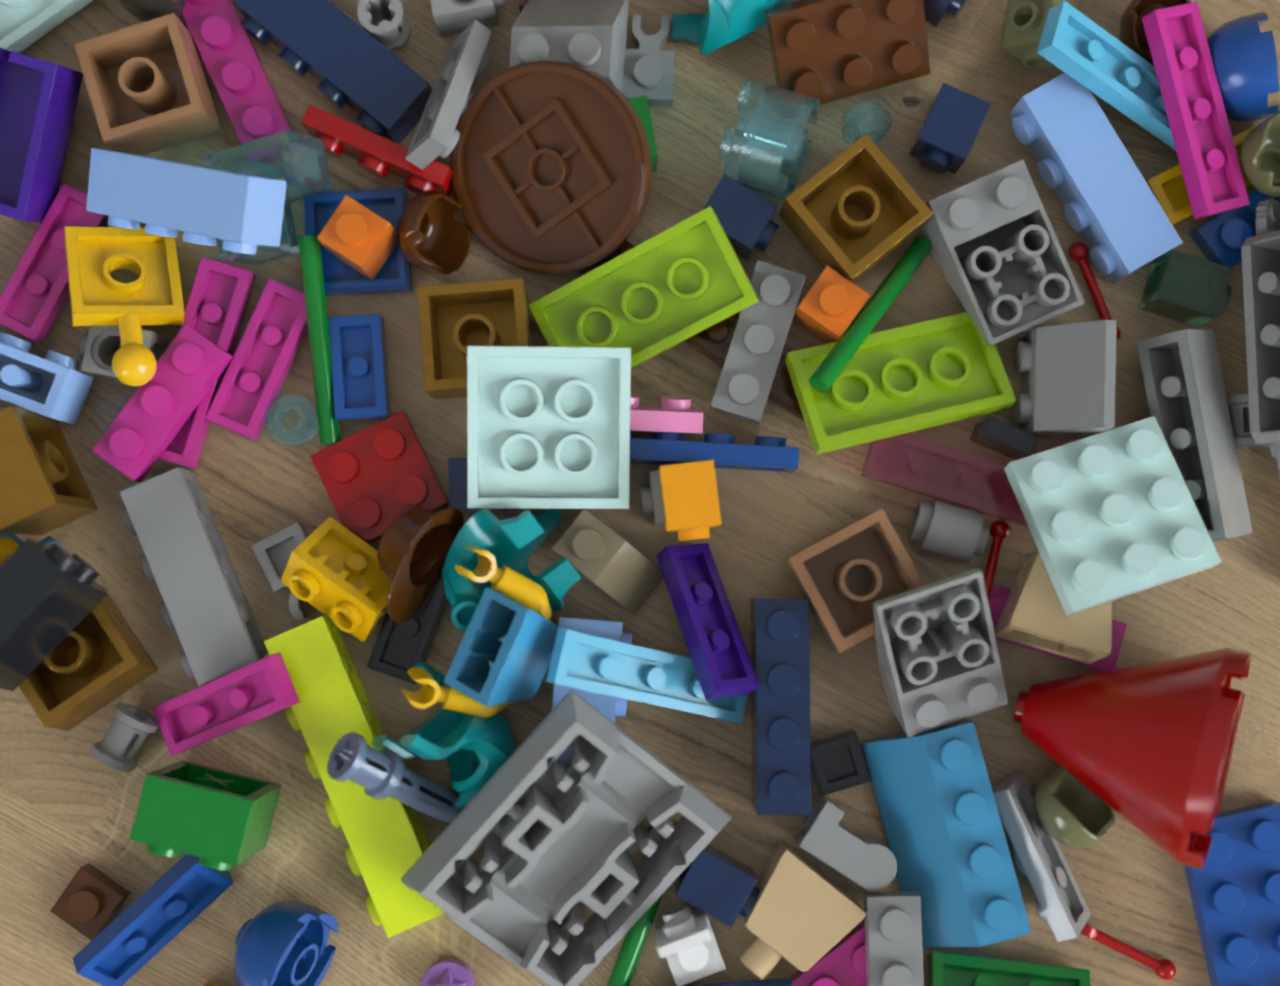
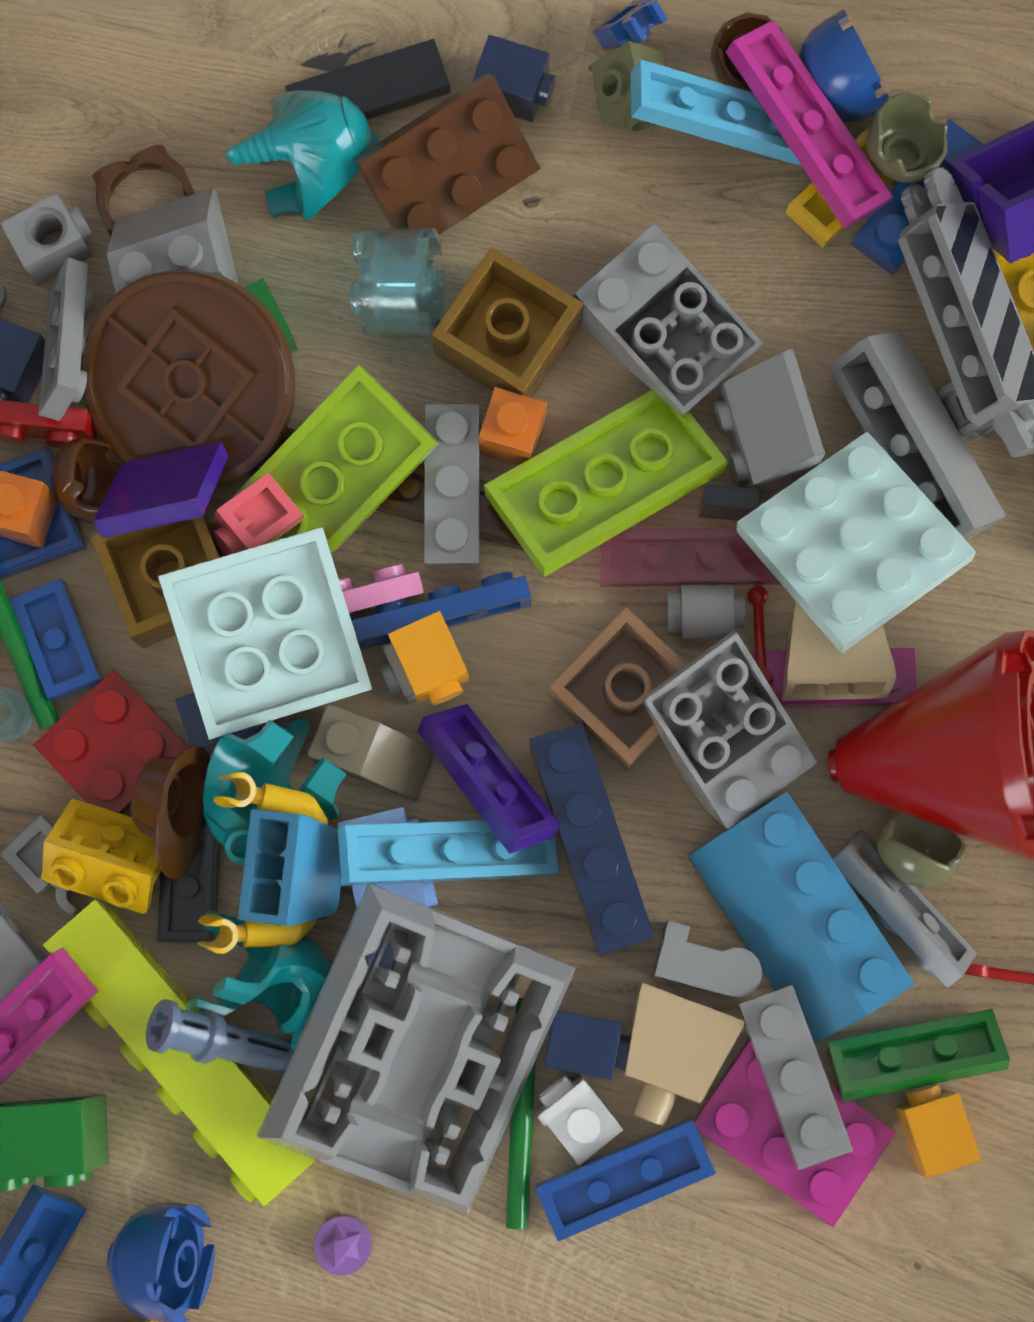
camera: 15 degrees left, 5 degrees down
(494, 263) = (161, 489): none -> dark purple tile
(571, 316) = (254, 517): none -> coral bracket
(649, 69) = (257, 251): light grey plate -> none
(743, 216) = (398, 366): dark blue brick -> none
(838, 762) = (670, 883): black tile -> none
(866, 119) = (491, 232): clear light blue plate -> none
(870, 315) = (555, 422): green bar -> none
(949, 130) = (575, 218): dark blue brick -> none
(1078, 252) = (745, 297): red hinge -> none
(1093, 177) = (734, 220): light blue brick -> none
(1186, 288) = (862, 298): clear green brick -> none

